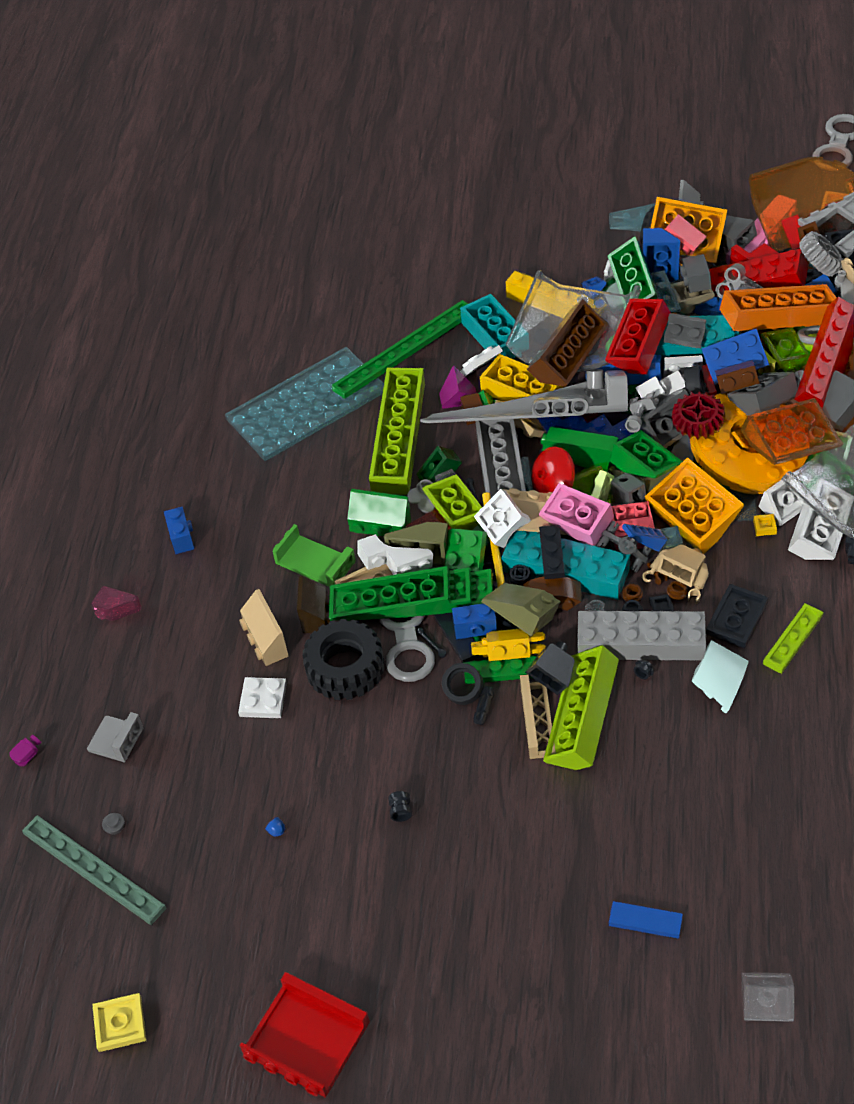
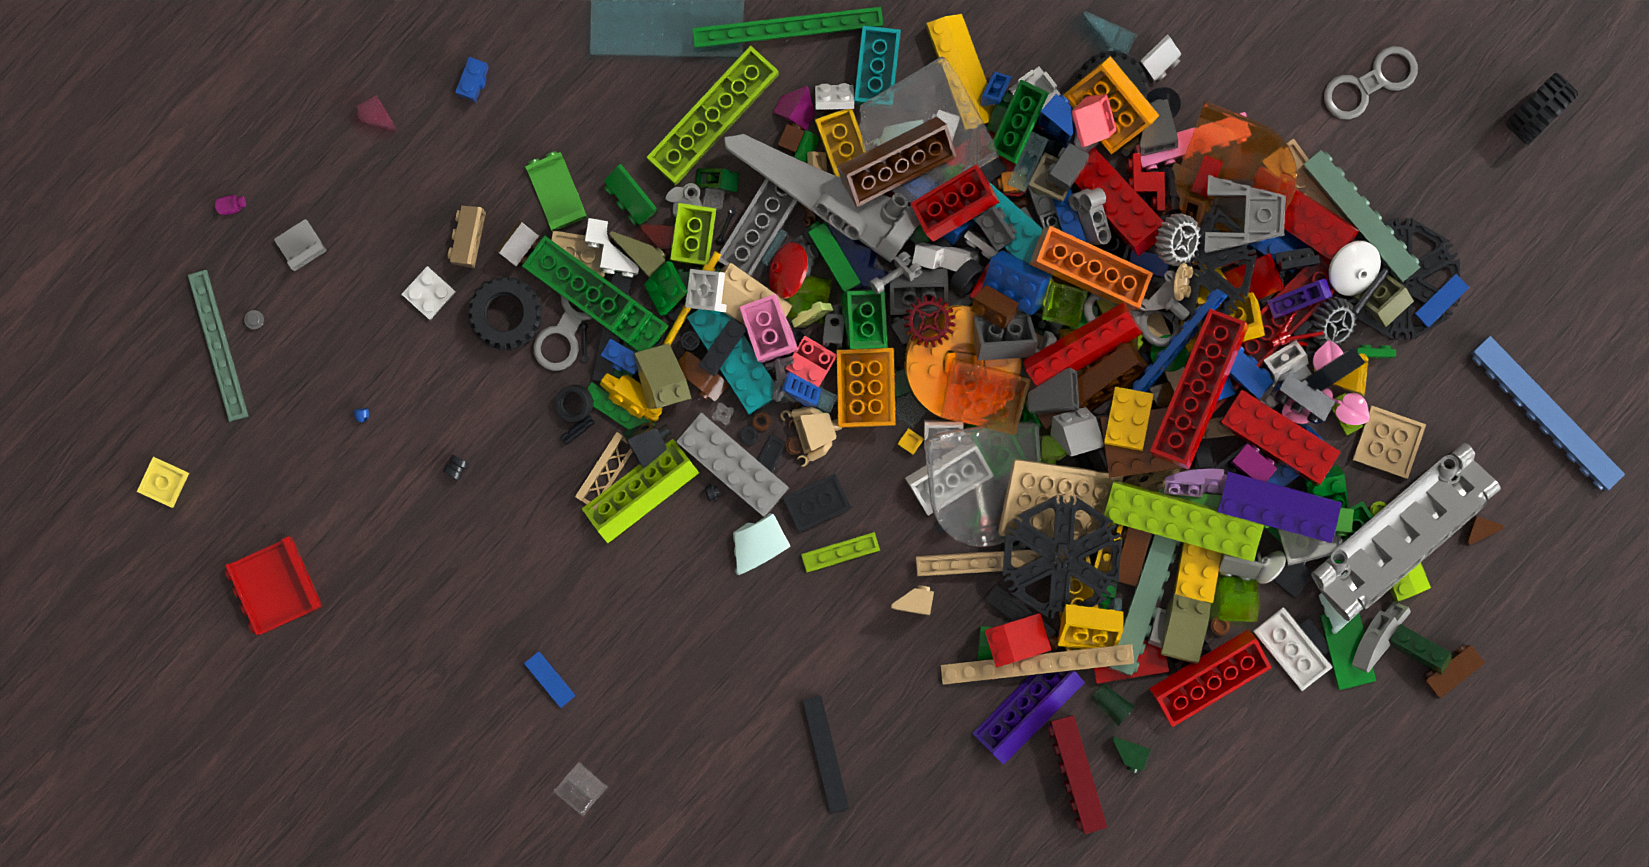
camera: 30 degrees right, 35 degrees up
(533, 443) = (810, 217): none -> reddish brown arm

